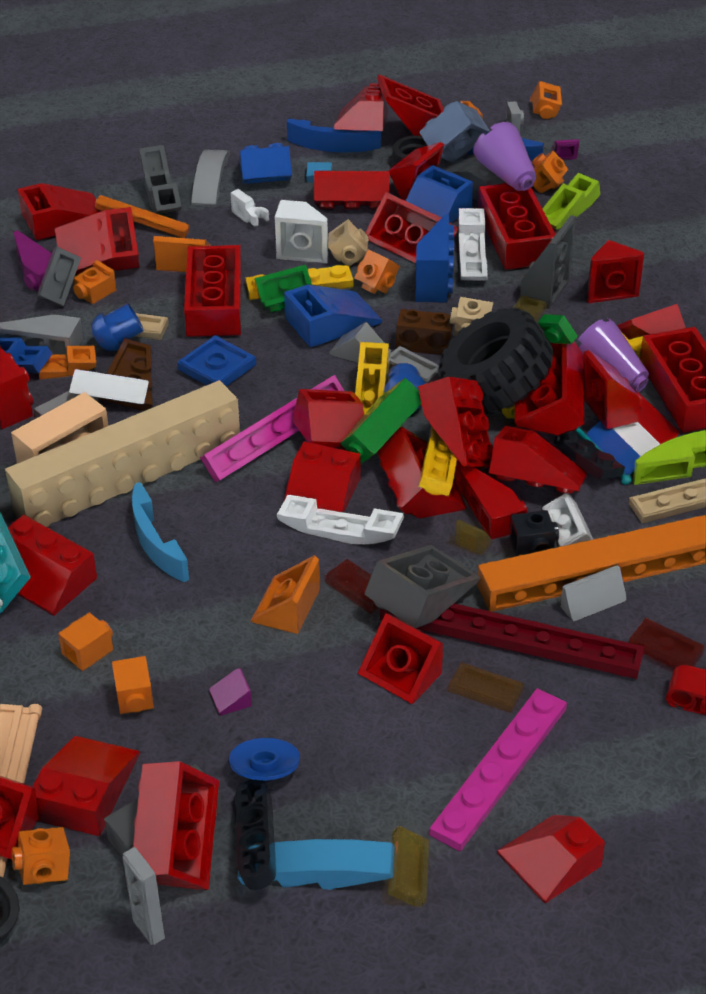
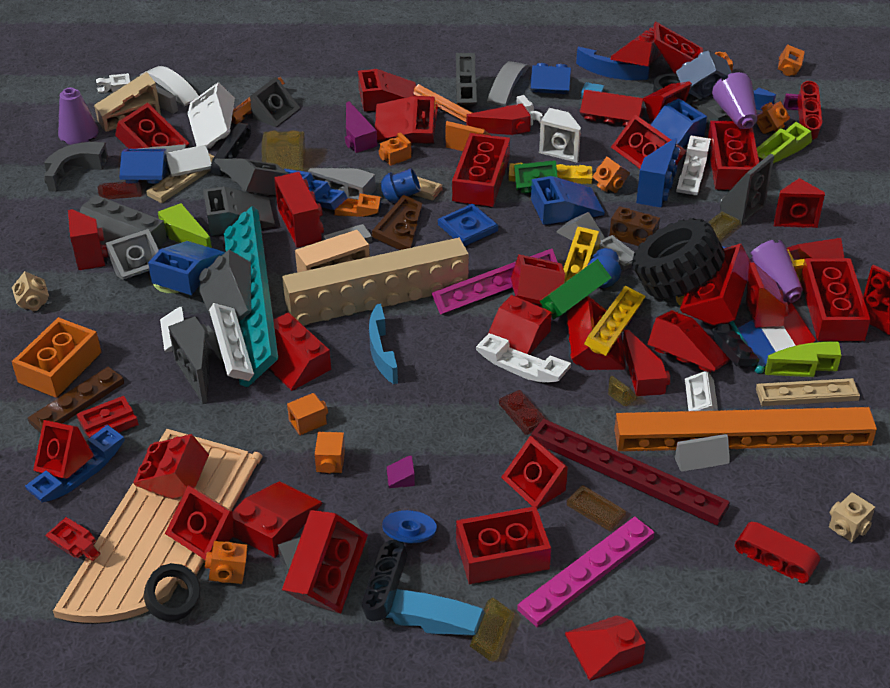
camera: 15 degrees right, 0 degrees up
(58, 277) = (369, 141): dark grey plate -> none
(109, 386) = (381, 229): white sticker -> none
(143, 896) = (285, 606): light grey tile -> none
(219, 225) = (503, 120): none -> red slope
(290, 597) = (467, 410): orange slope -> none
(348, 243) = (595, 149): tan brick -> none
(390, 757) = (503, 545): none -> red brick
(419, 584) = (565, 419): dark grey slope -> none
(458, 417) = (633, 298): red slope -> none
(467, 311) = (668, 215): tan brick -> none
(514, 114) = (760, 70): light grey plate -> none
(532, 532) = (669, 396): black brick -> none
(557, 329) = (732, 241): green plate -> none
(589, 152) = (808, 100): none -> red beam
(666, 645) = (748, 504): clear red plate -> none

